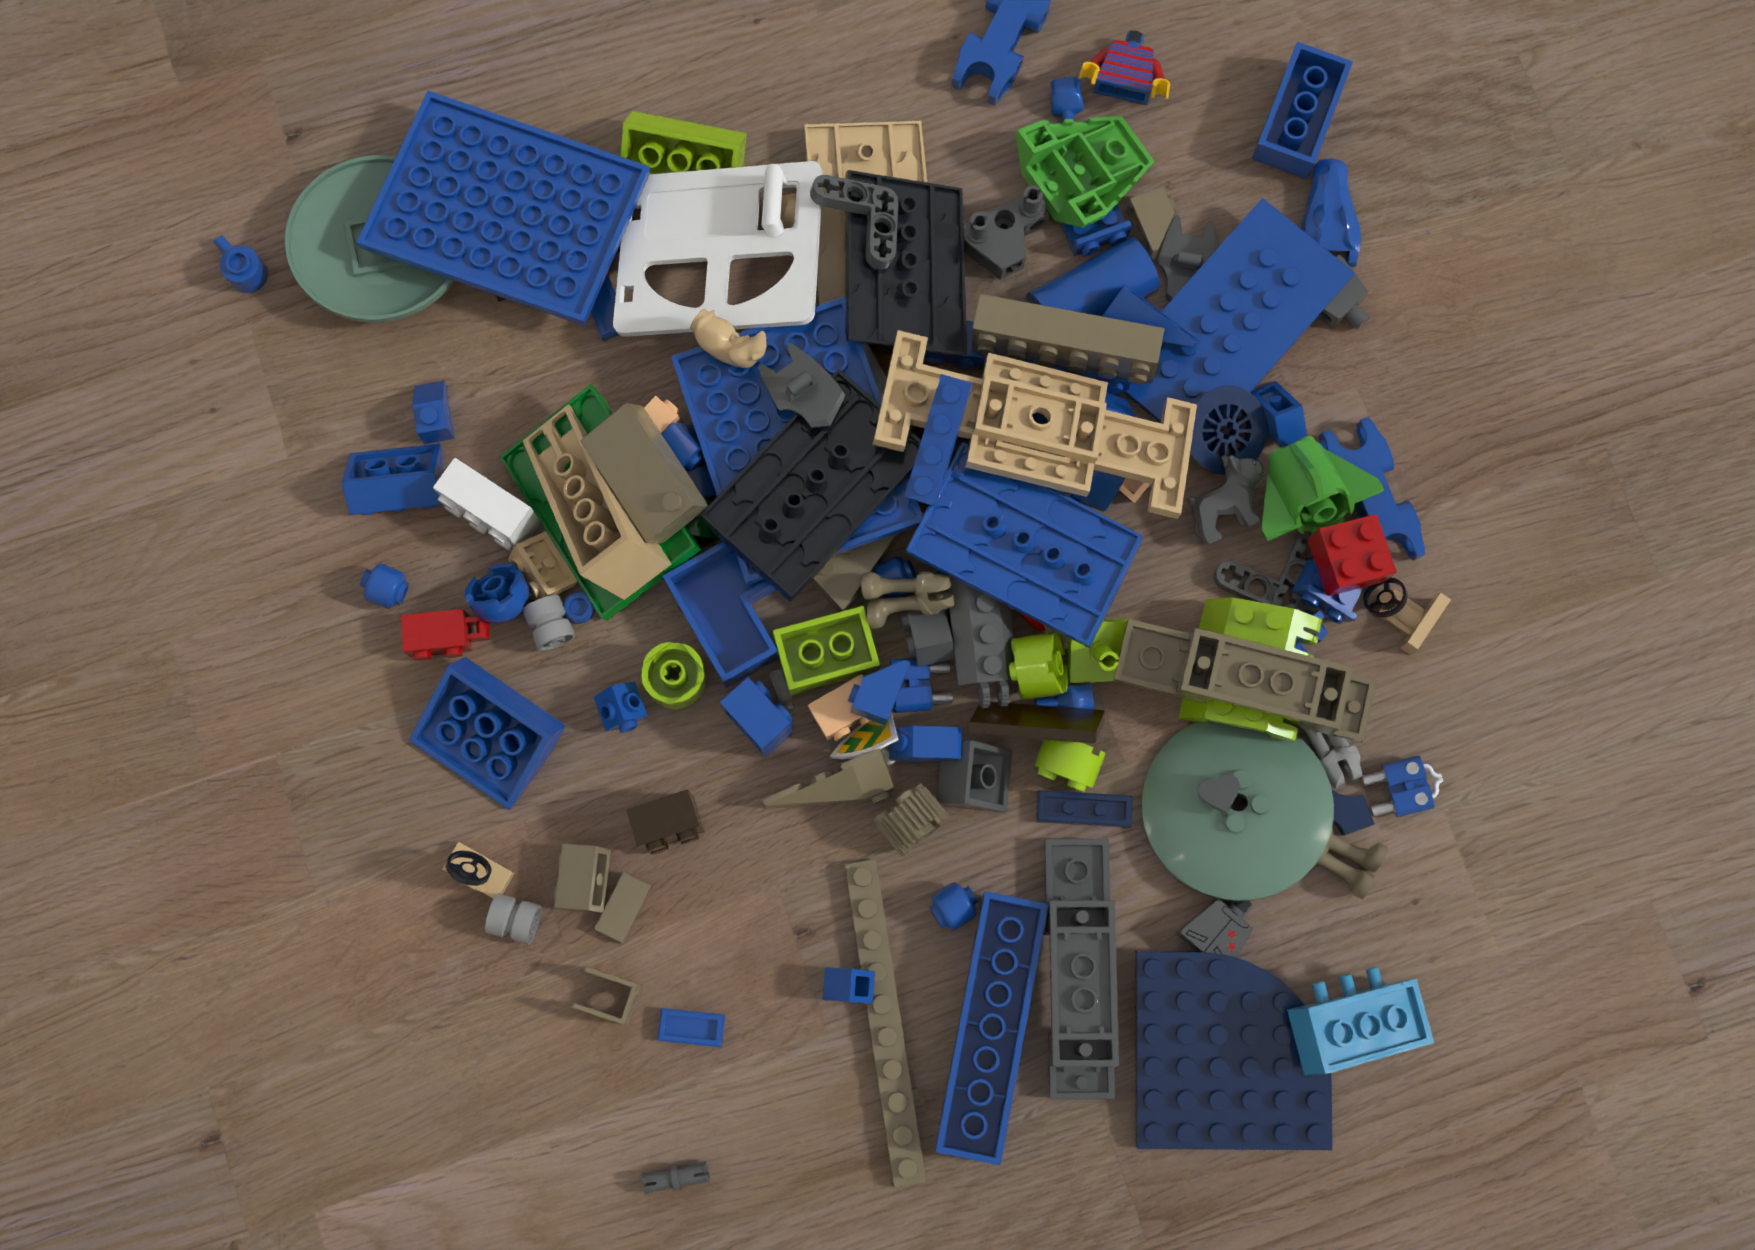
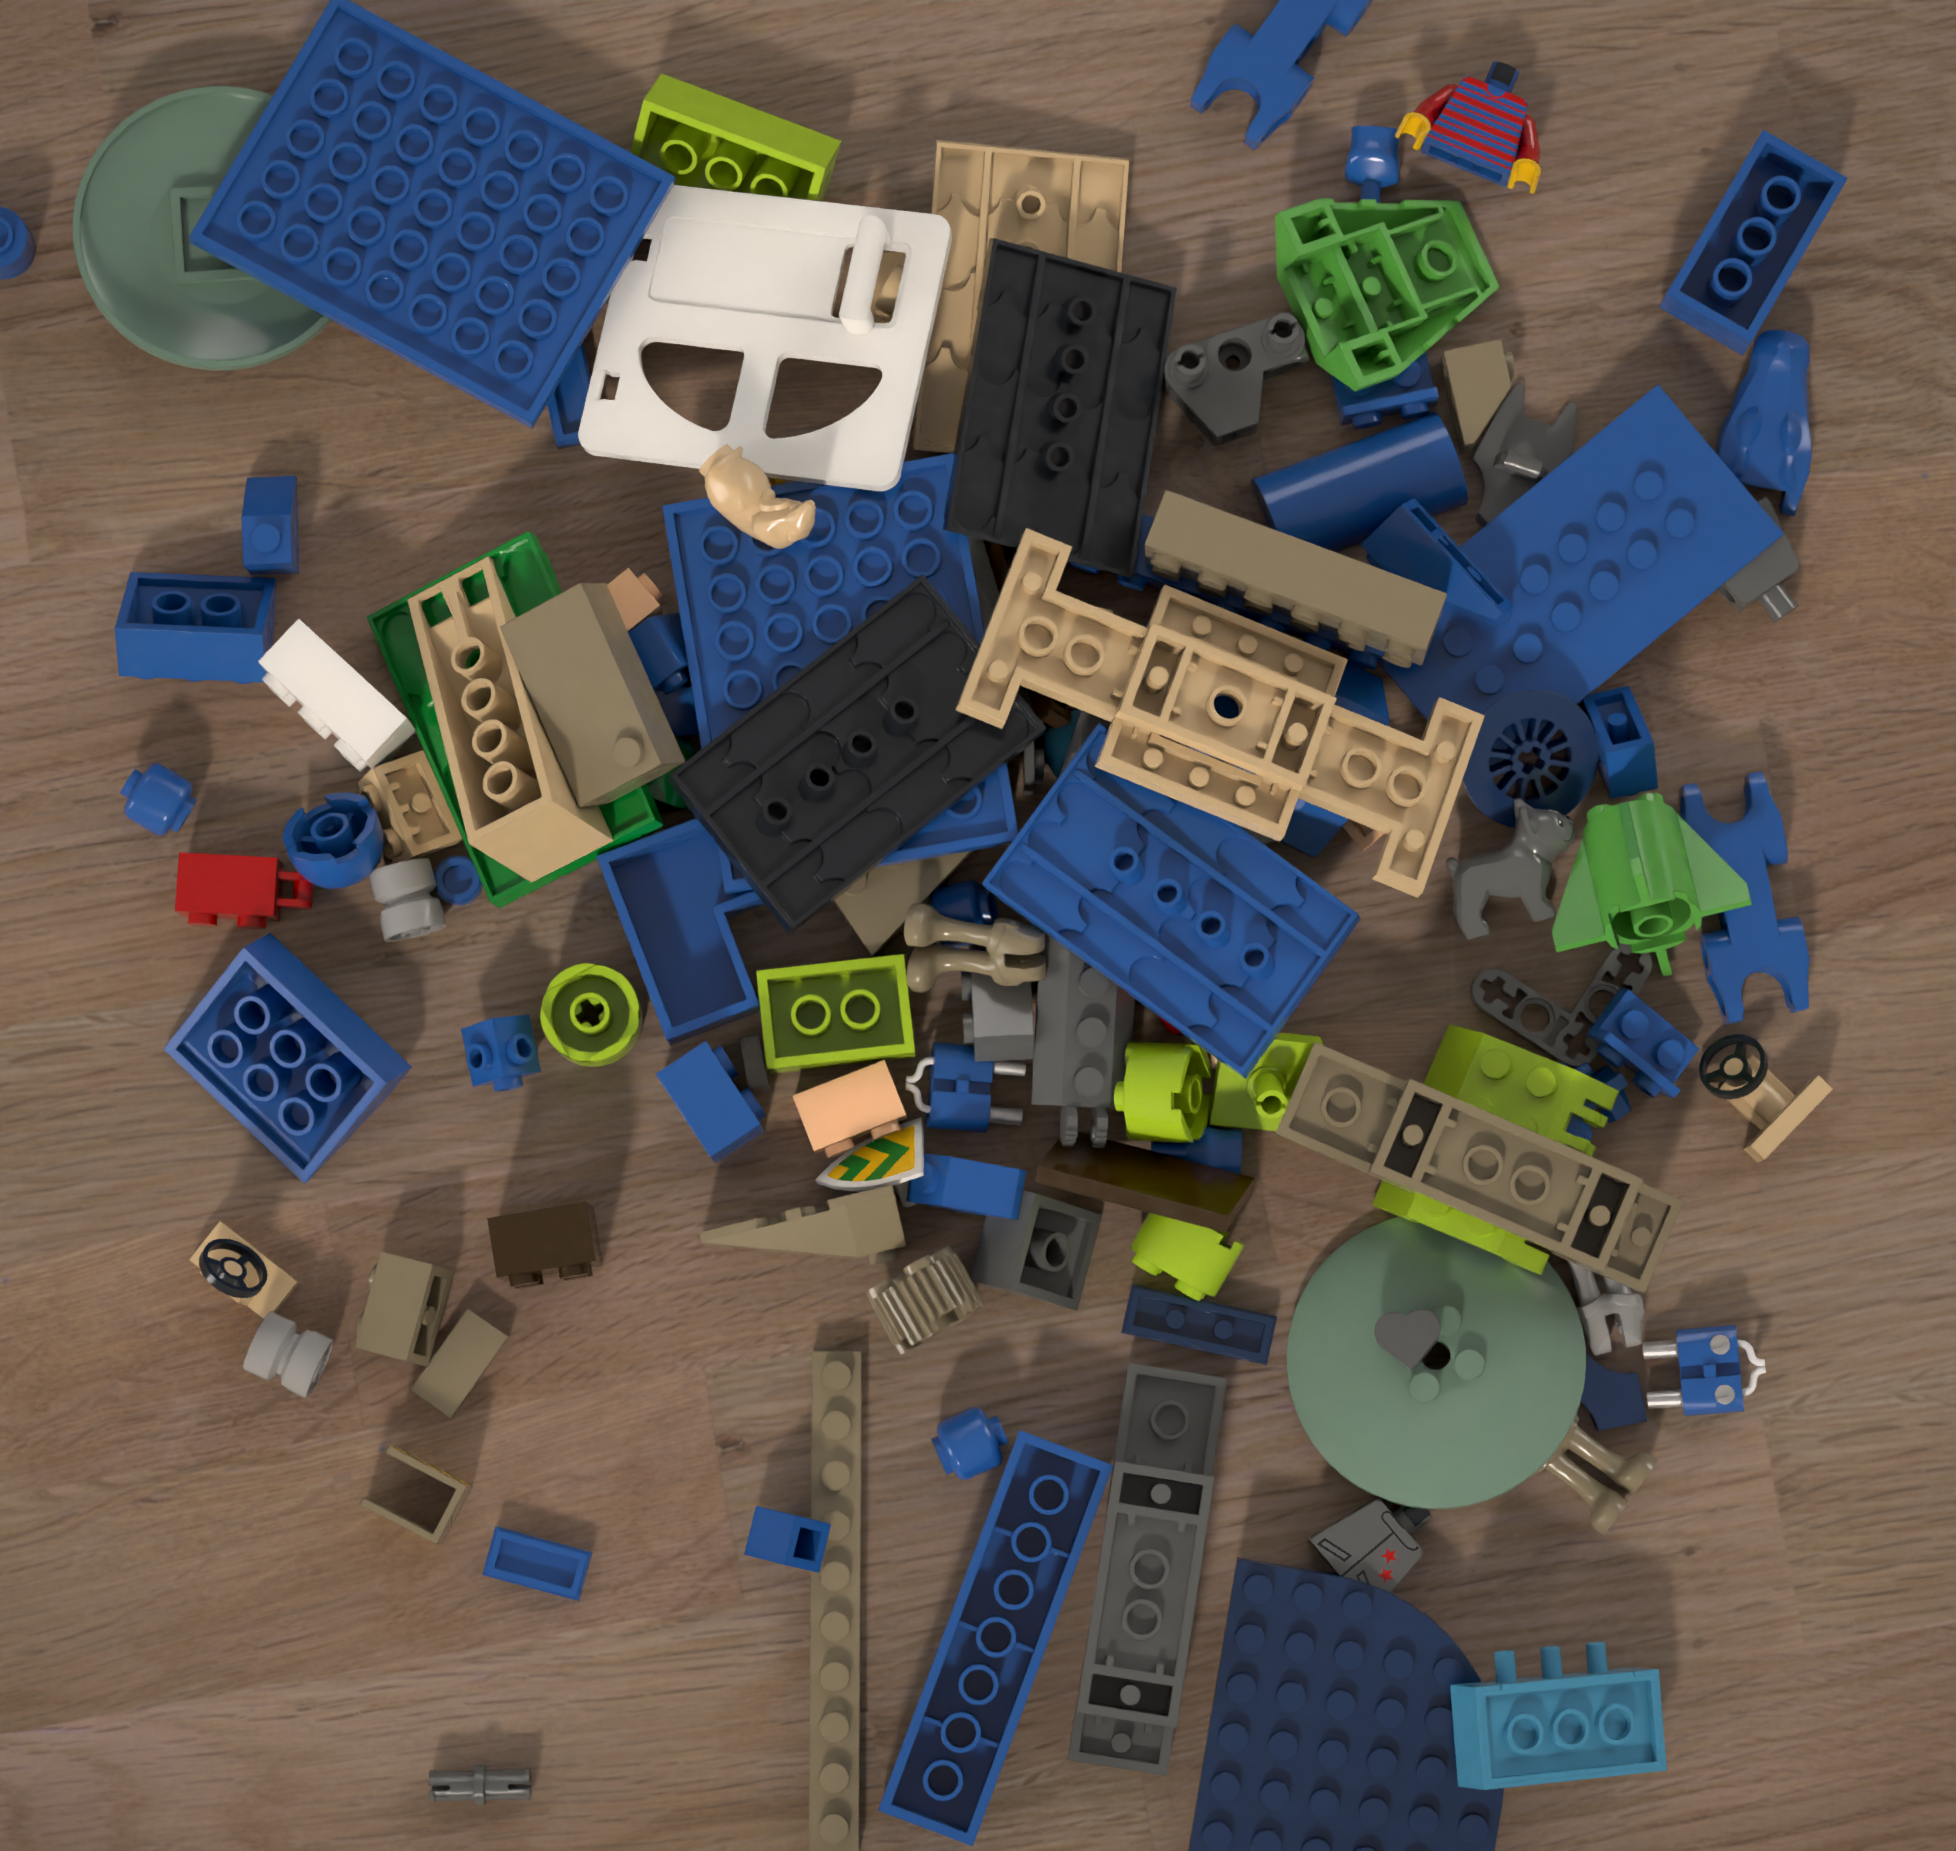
camera: 10 degrees right, 5 degrees up
(804, 388) = (863, 598): dark grey shield -> none
(870, 206) = (1016, 306): dark grey beam -> none
(878, 693) = (905, 1096): blue slope -> none
(938, 439) = (1059, 719): blue plate -> none
(1351, 555) = (1685, 996): red brick -> none

